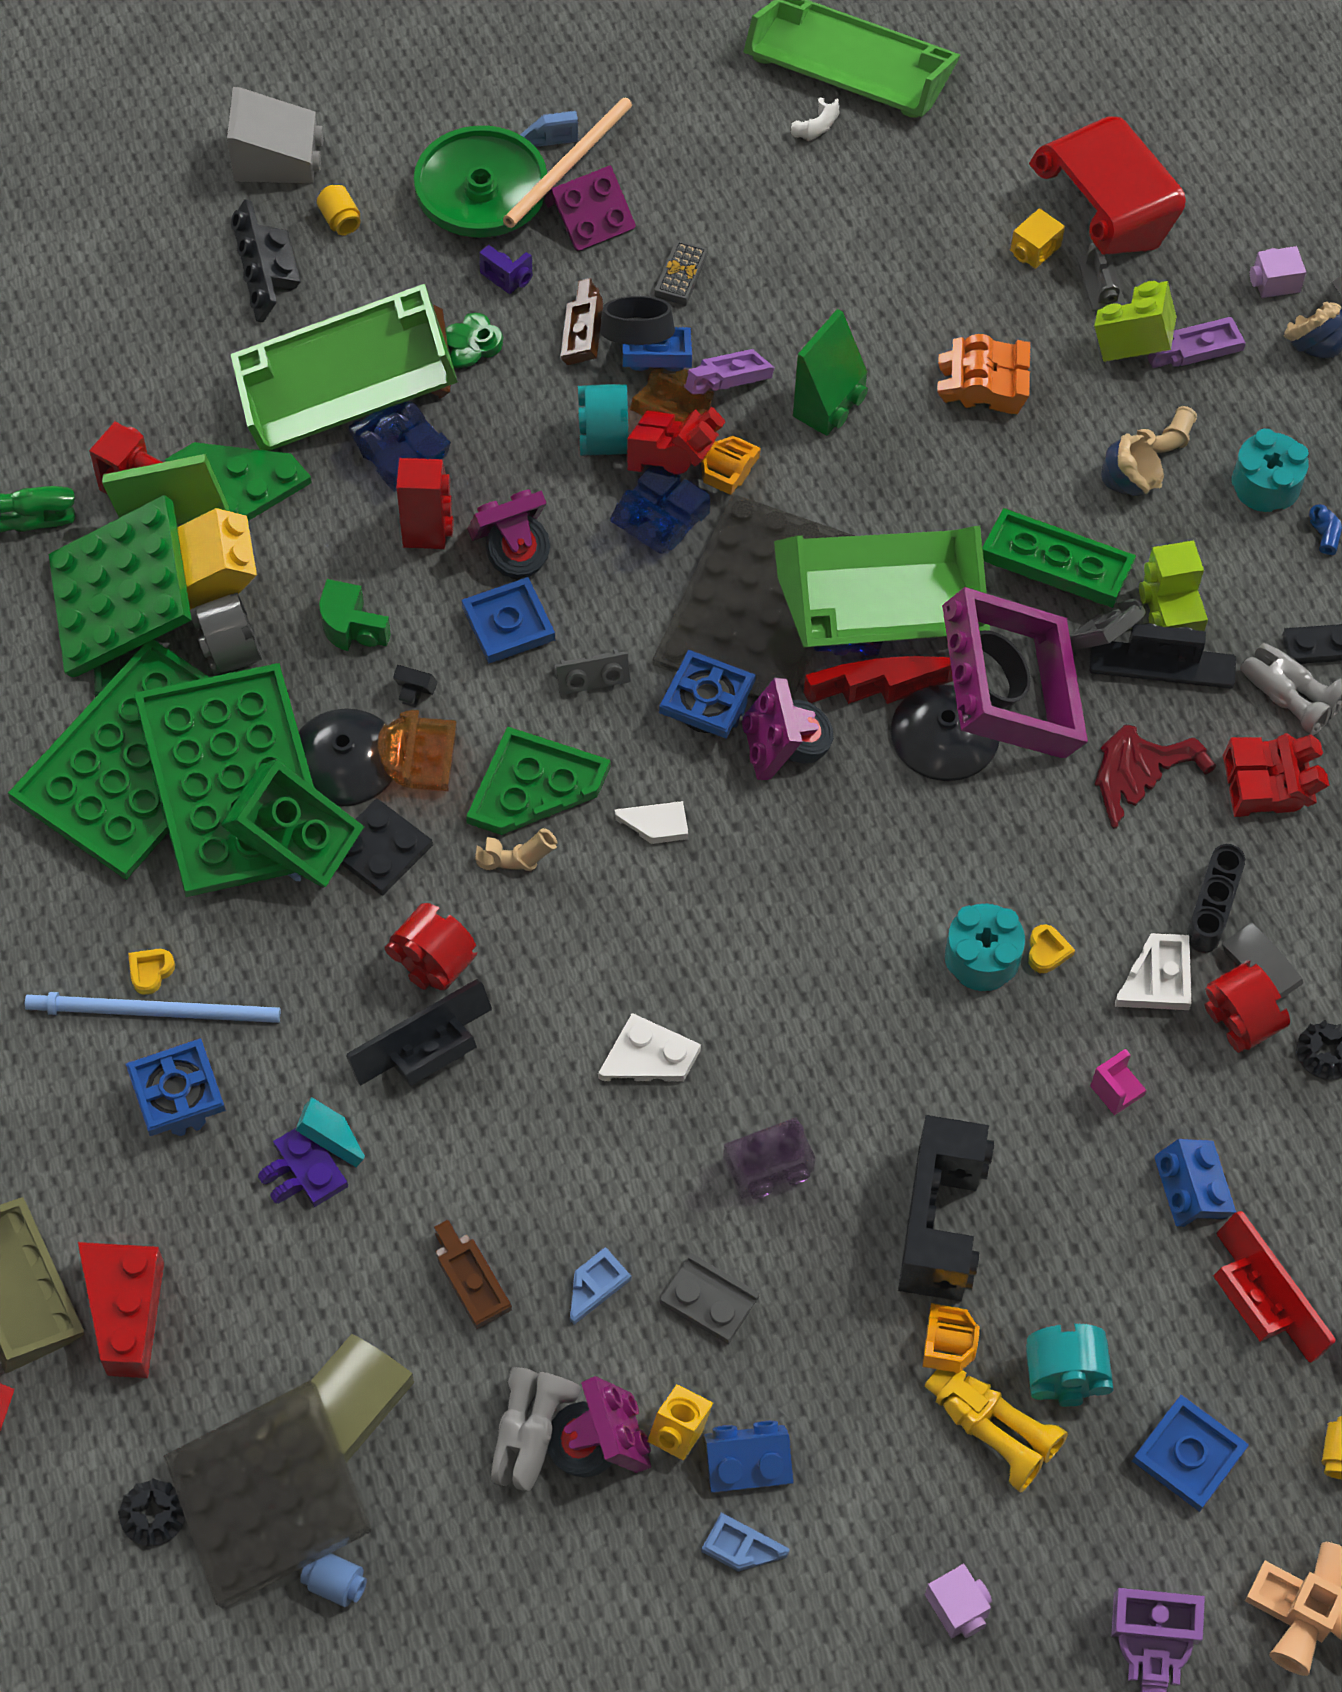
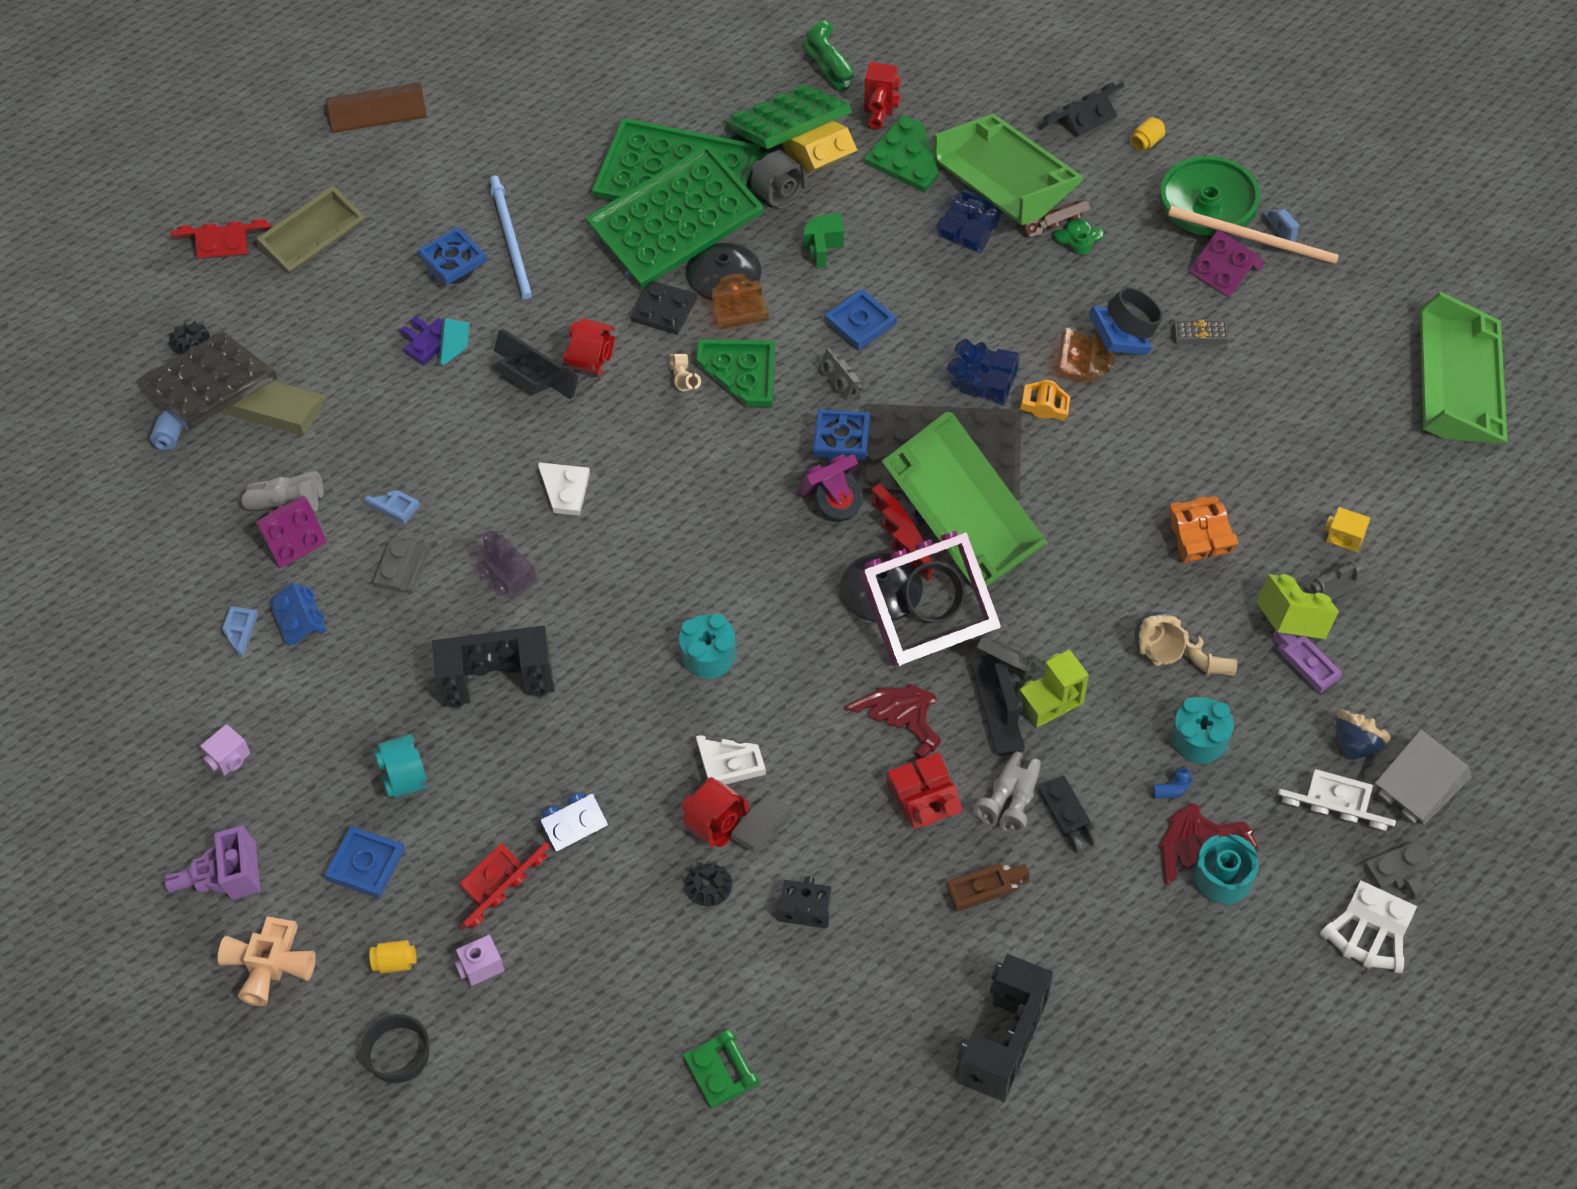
camera: 75 degrees right, 5 degrees down
(123, 1302) = (306, 280): red wedge -> none
(149, 969) = (535, 226): yellow tile -> none
(184, 481) = (866, 116): bright green tile -> none
(272, 139) = (1181, 78): light grey slope -> none
(292, 823) = (647, 248): green slope -> none
(413, 684) = (787, 285): black tile -> none
(424, 503) = (918, 238): red wedge -> none
(470, 1276) = (378, 438): reddish brown hinge -> none
(504, 272) = (1144, 235): dark purple bracket -> none
(515, 539) = (921, 301): plate -> none
(582, 324) = (1104, 291): hinge -> none
(603, 419) = (1039, 316): teal brick -> none
(656, 822) = (739, 443): white tile -> none
(672, 443) = (1037, 354): red hips -> none
(680, 1422) = (312, 560): yellow brick -> none
(728, 371) = (1119, 375): medium lavender hinge -> none
(815, 127) = (1393, 374): white piece -> none
(829, 376) = (1137, 424): green slope -> none
(950, 1338) = (406, 699): light orange piece -> none
(974, 1405) = (364, 729): yellow piece -> none
(1048, 949) = (727, 690): yellow tile -> none
(1058, 557) = (1055, 610): green plate -> none
(1116, 1083) = (630, 752): dark pink panel -> none
(1121, 180) = (1412, 555): red windscreen -> none
(1223, 885) = (792, 772): black beam -> none
(1278, 272) = (1406, 695): lavender brick -> none

